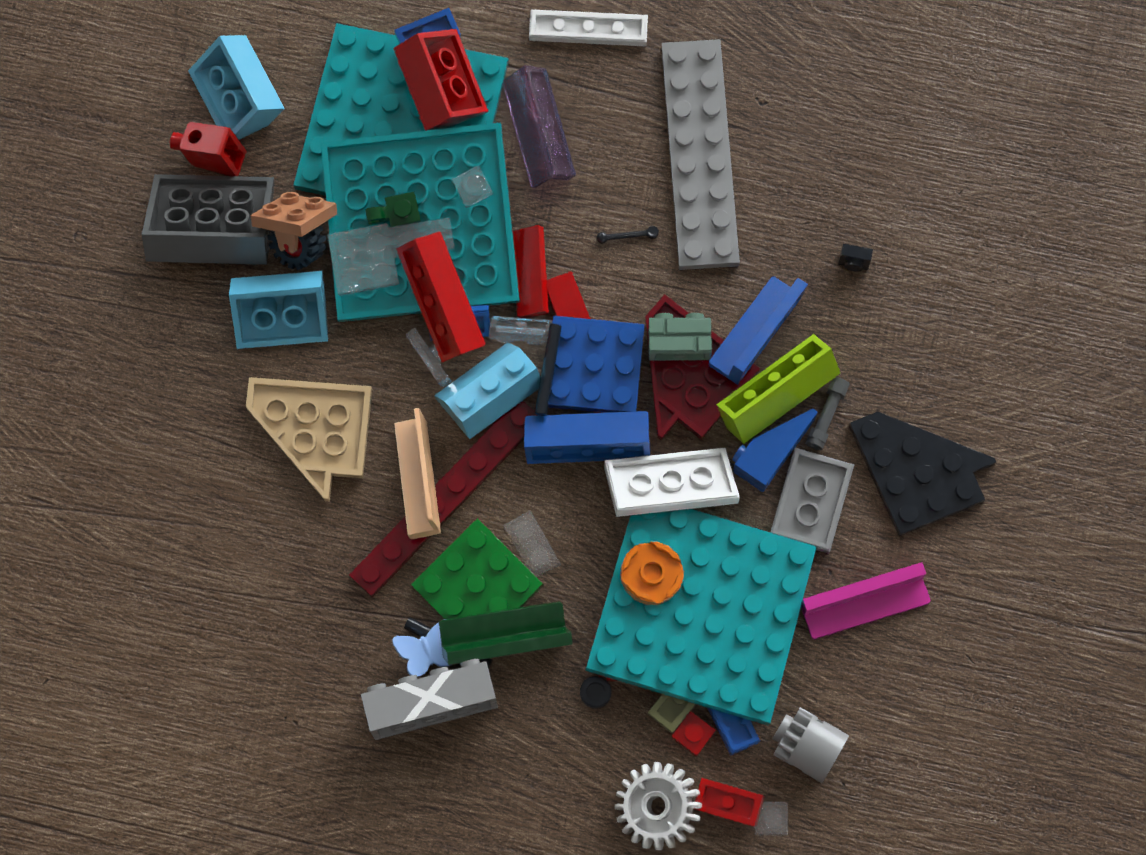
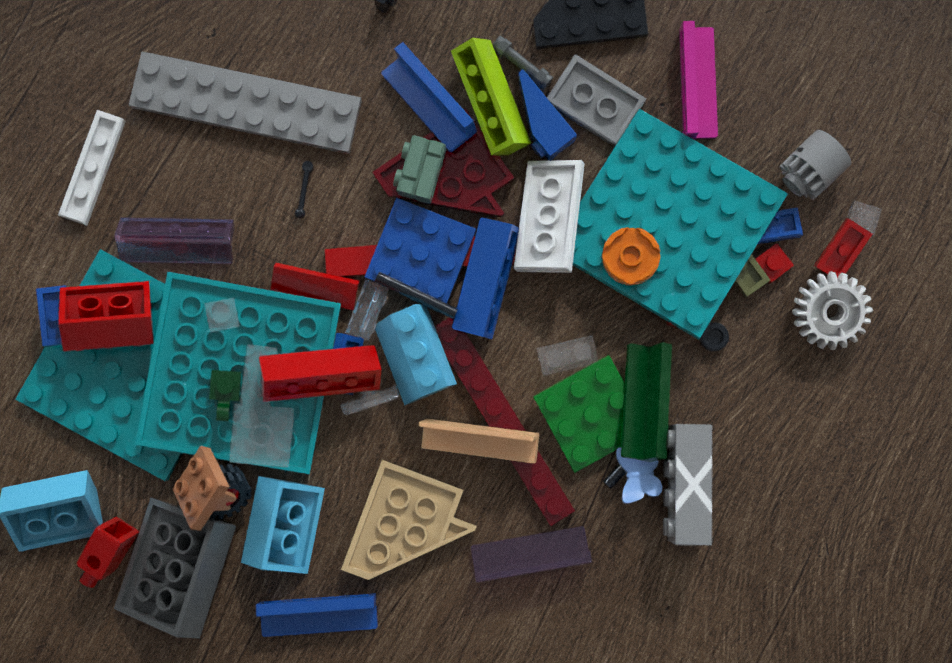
camera: 70 degrees left, 10 degrees up
(198, 370) = (318, 615): none -> blue panel
(315, 563) = (530, 554): none -> clear purple panel

